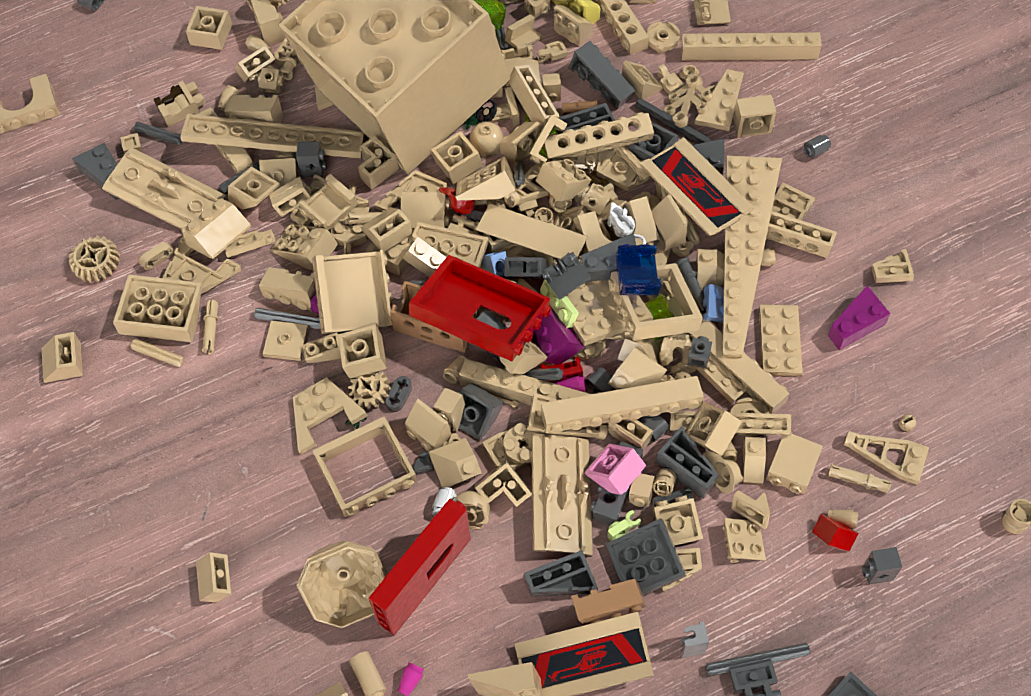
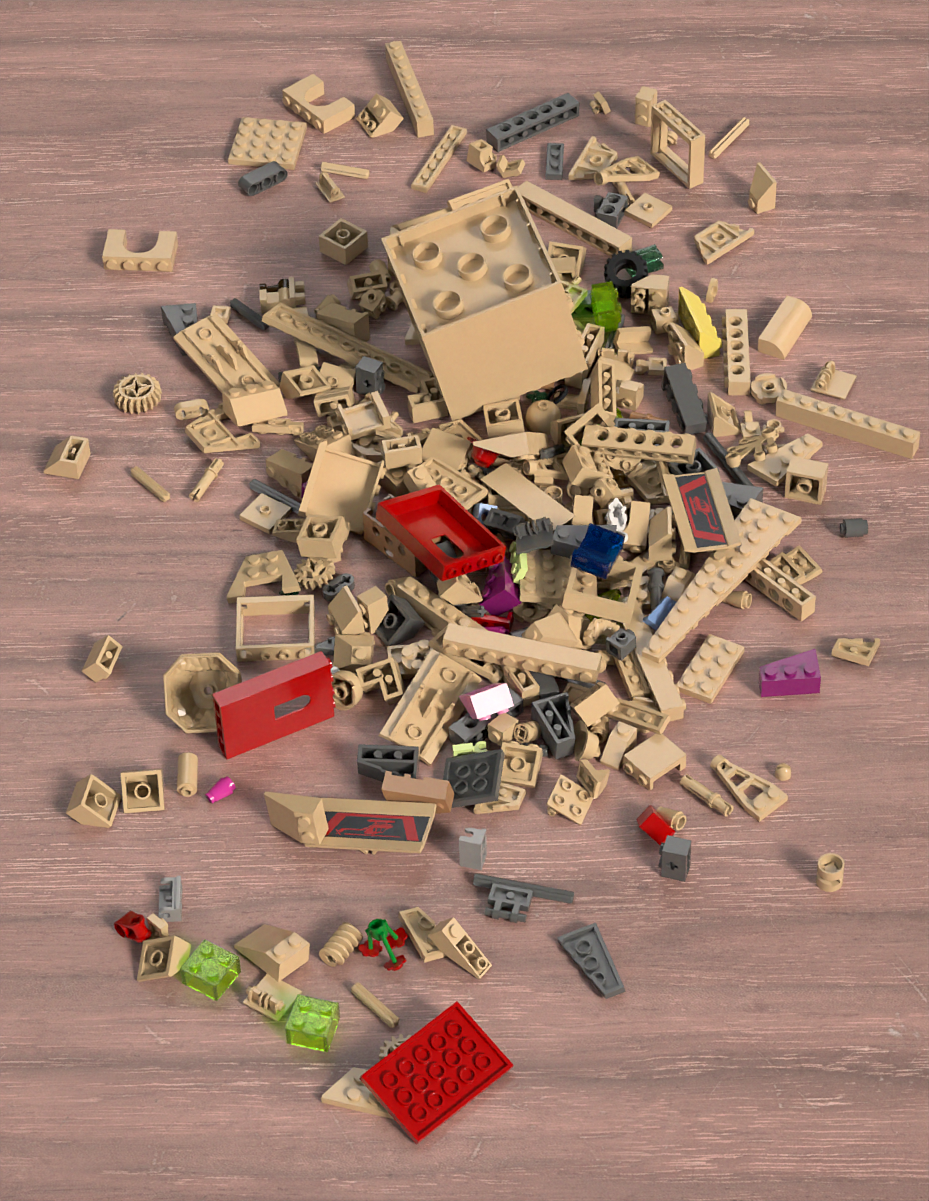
camera: 25 degrees right, 15 degrees down
(159, 308) = (169, 448): tan slope -> none

